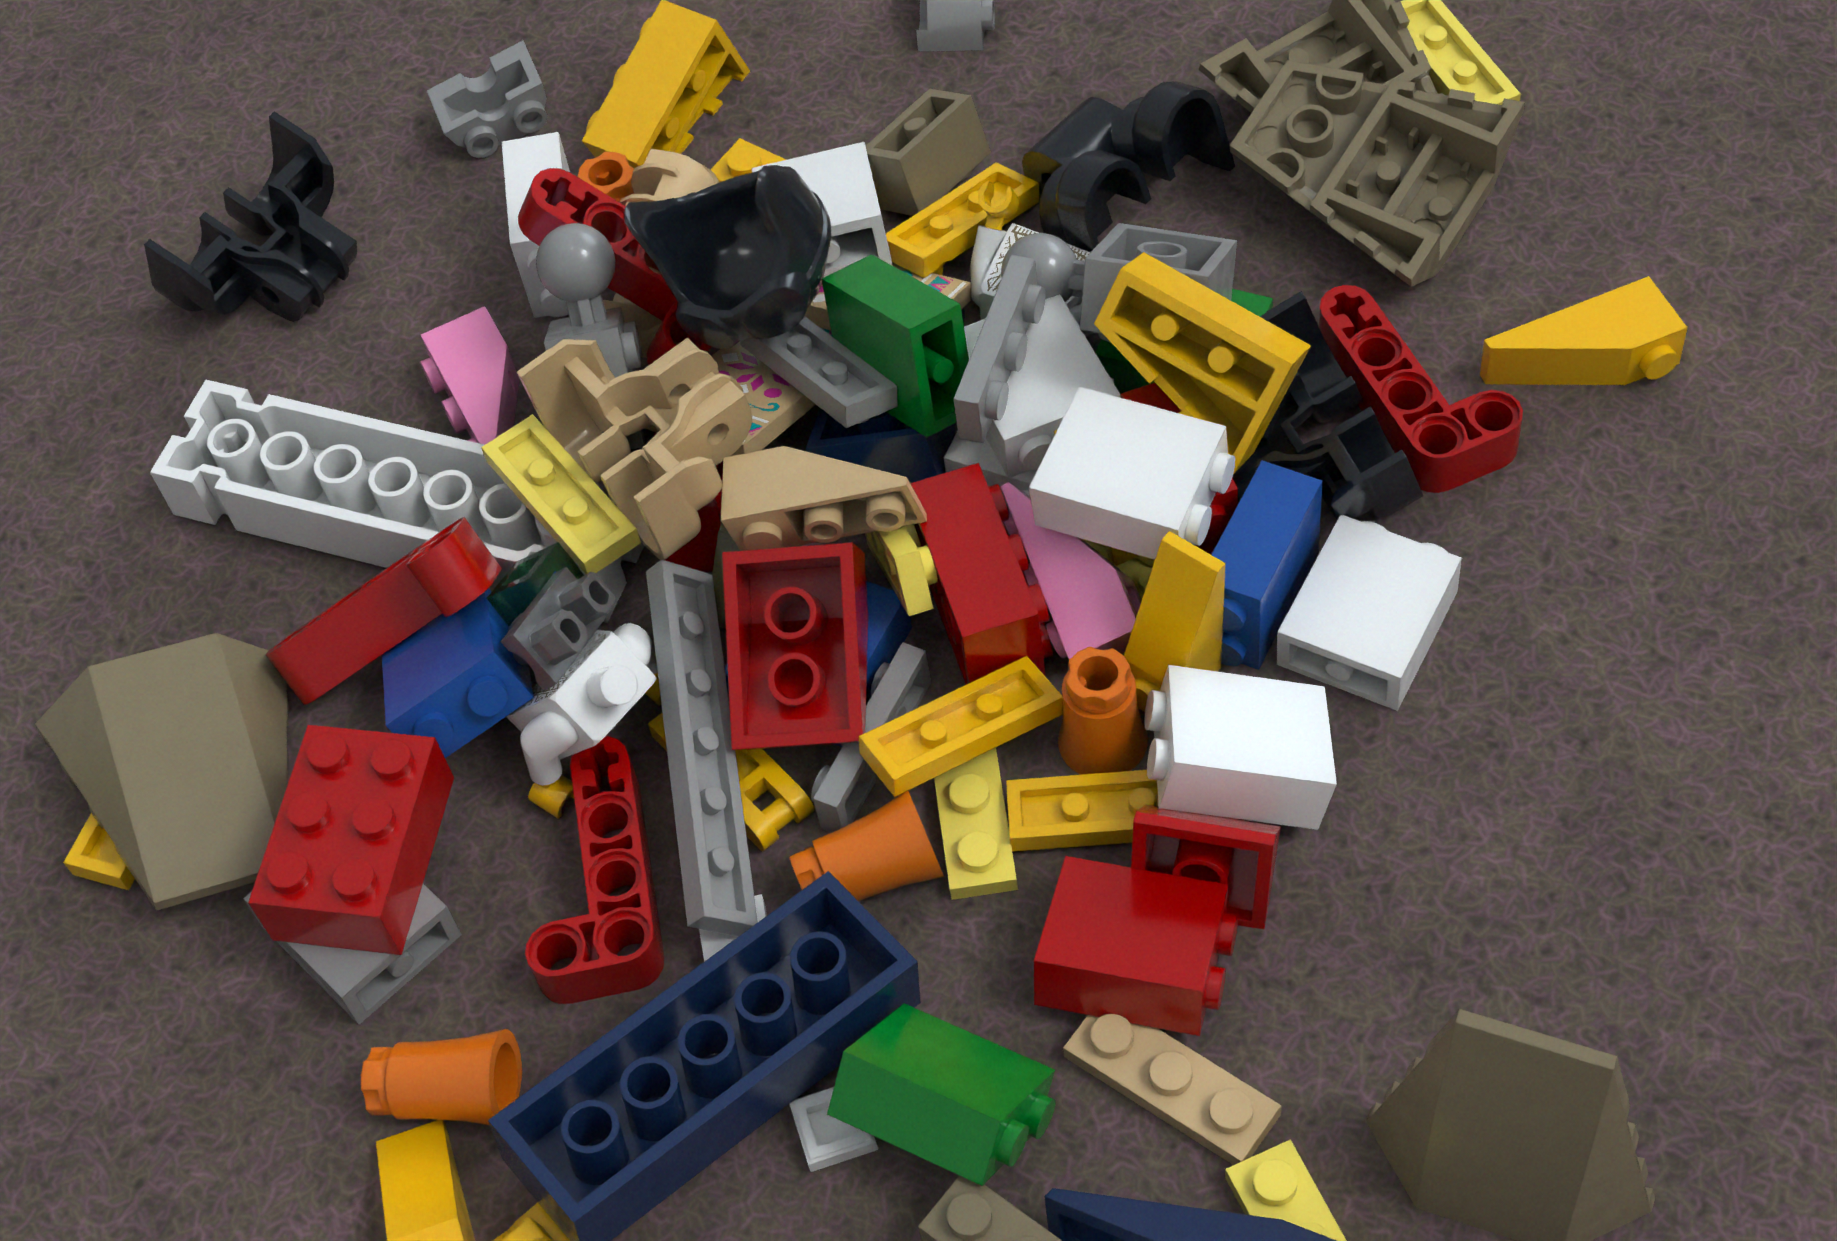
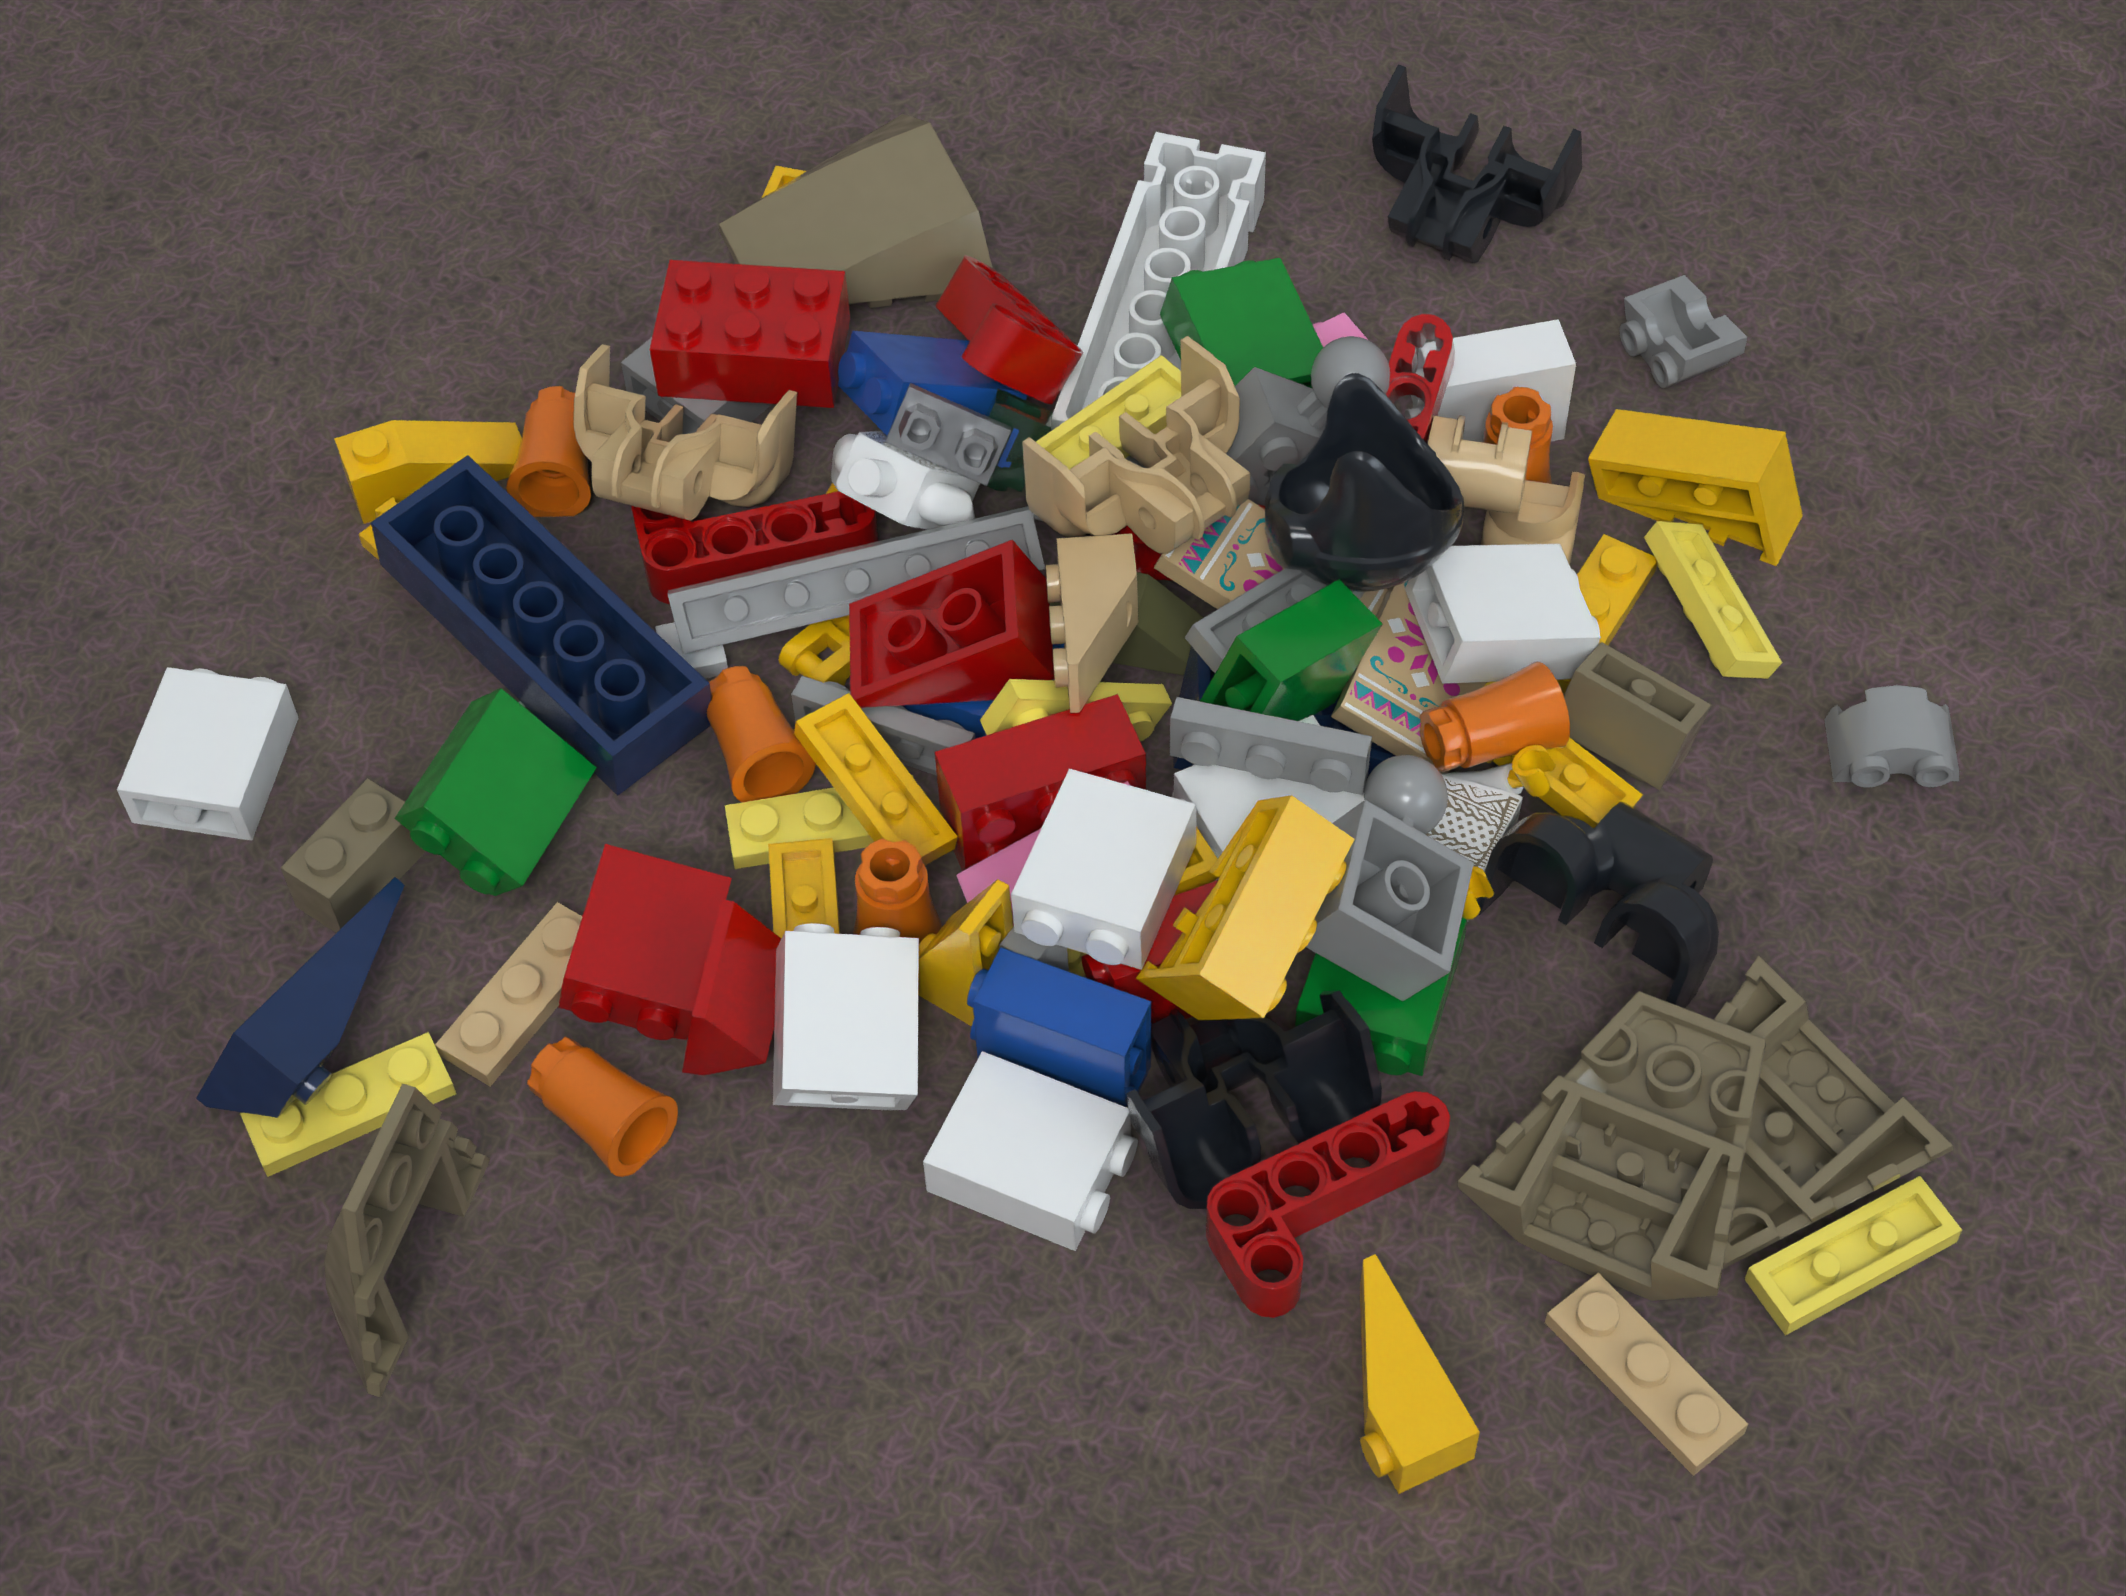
camera: 80 degrees right, 0 degrees up
(457, 385) = (1245, 319): none -> green brick
(534, 932) = (673, 471): none -> tan piece
(795, 103) = (1712, 600): none -> light yellow plate
(943, 208) = (1497, 720): none -> orange plant
(1323, 982) = (603, 1105): none -> orange plant
(1558, 195) = (1646, 1374): none -> tan plate

